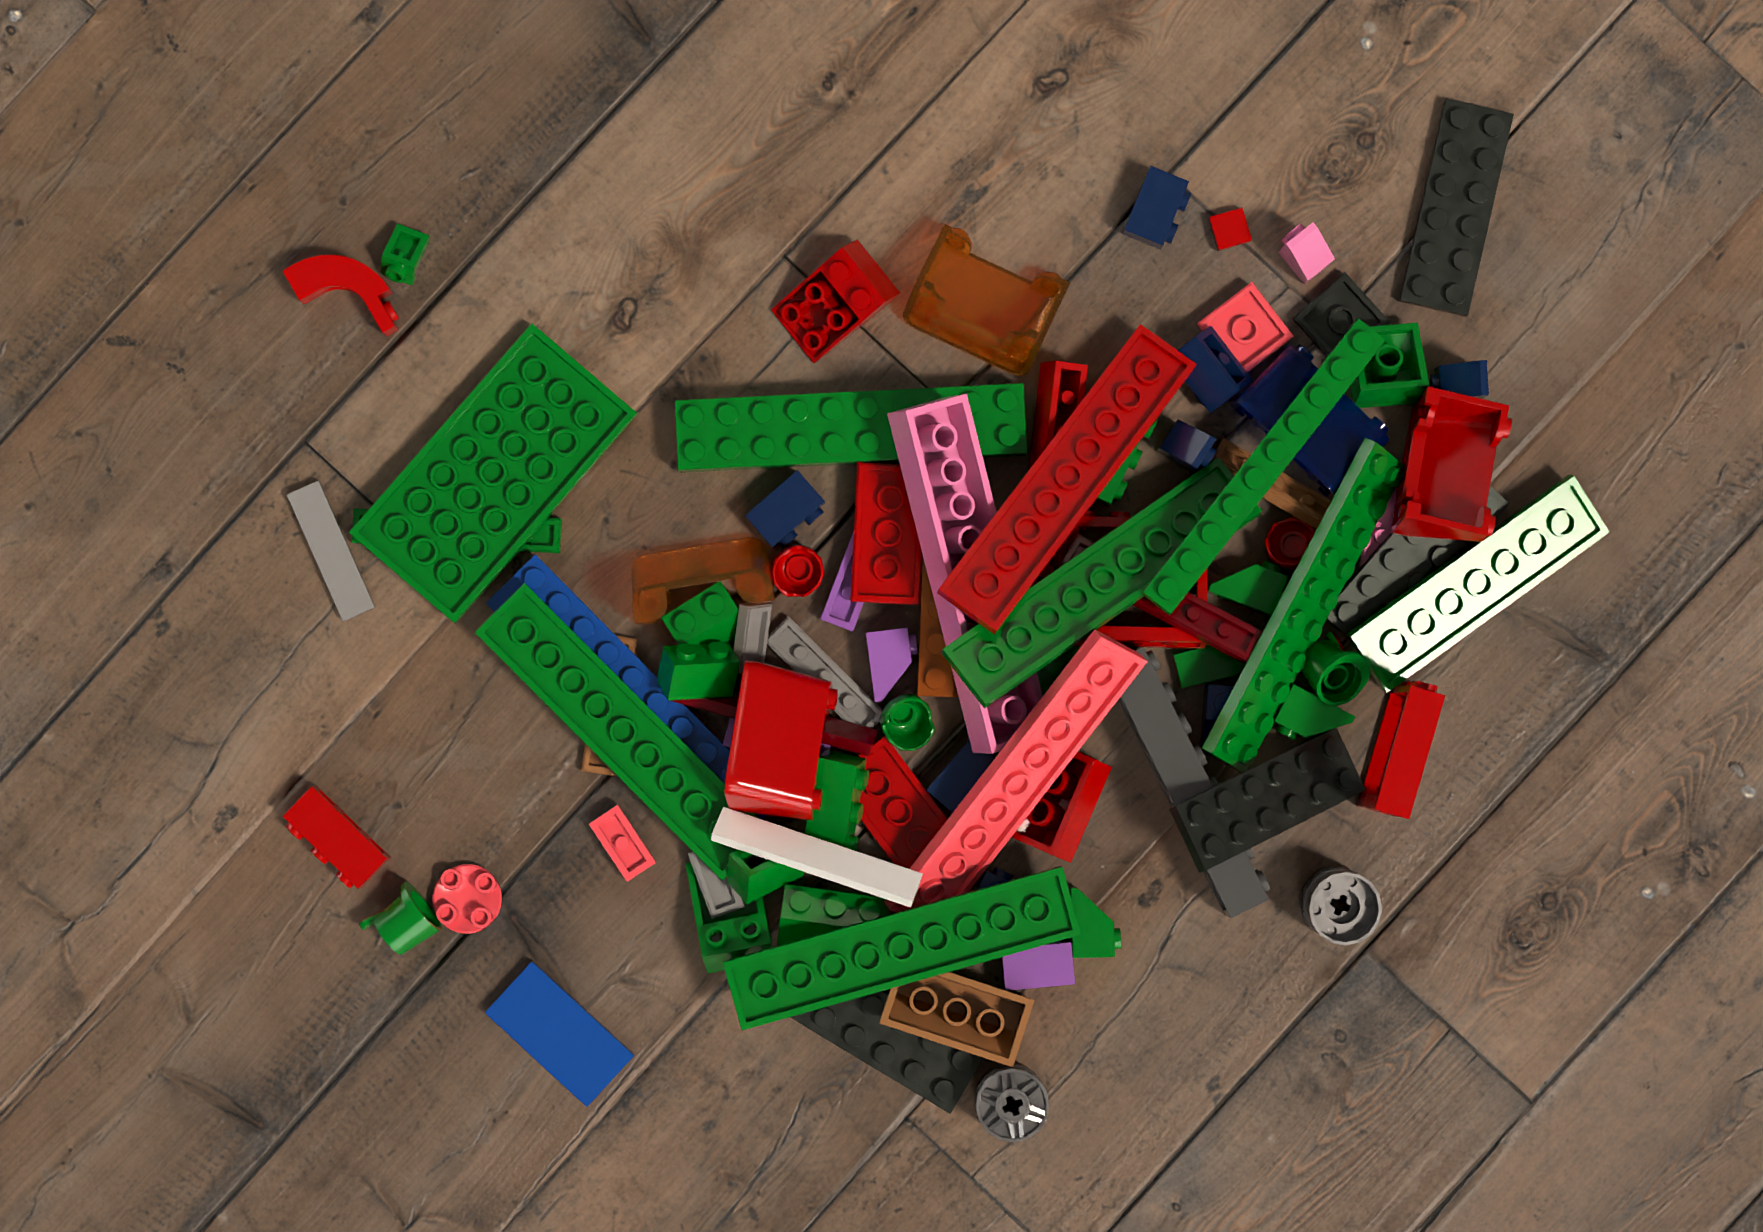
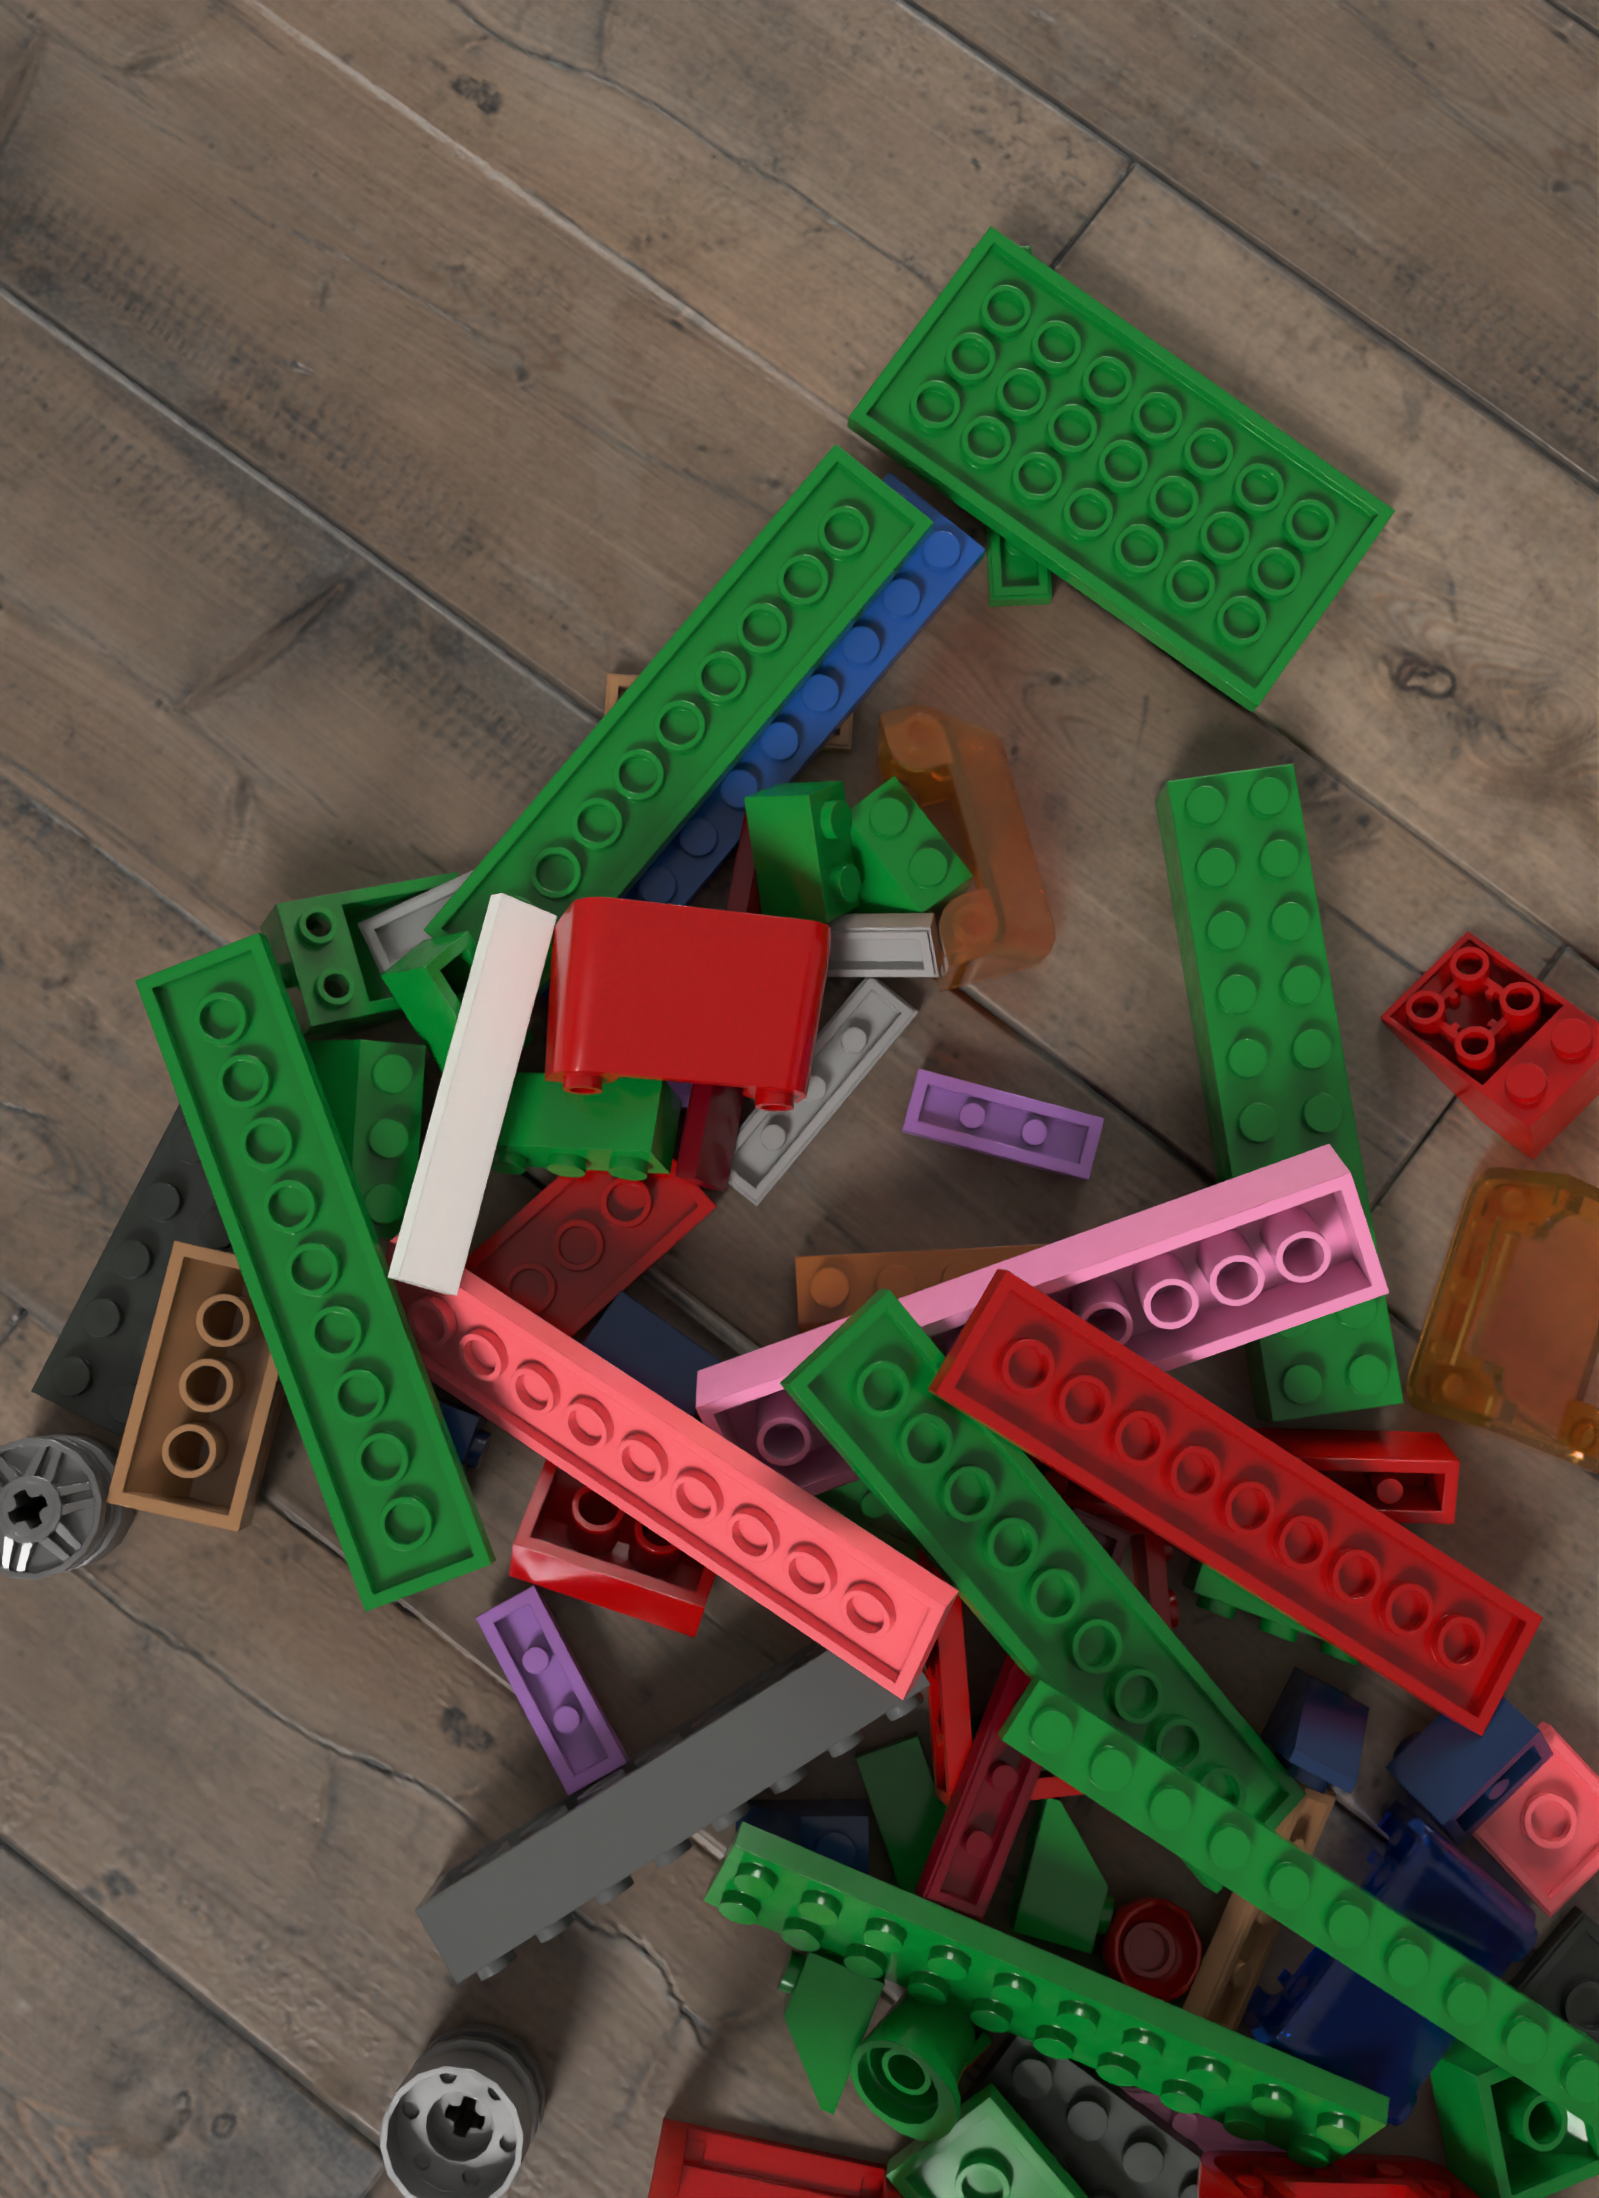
camera: 90 degrees right, 5 degrees down
(331, 551) = (952, 218): light grey tile -> none
(335, 272) = (1436, 159): red arch -> none
(335, 838) = (455, 267): red brick -> none
(403, 254) = (1487, 283): green bracket -> none
(405, 921) = (317, 394): green hat -> none
(466, 898) = (365, 499): coral dish -> none
(559, 1033) = (139, 681): blue tile -> none
(622, 843) = (484, 756): coral plate -> none
(786, 510) = (1110, 988): dark blue brick -> none
(797, 571) = (1002, 1017): red hair -> none
(884, 539) = (1077, 1171): red tile -> none
(889, 658) = (859, 1200): medium lavender slope -> none
(907, 722) = (744, 1244): green hair -> none
(1039, 967) = (301, 1537): medium lavender brick -> none
(1097, 930) = (389, 1636): green slope -> none
(1130, 845) = (552, 1689): none -> medium lavender plate
(1267, 800) = (650, 1954): pearl dark grey plate -> none

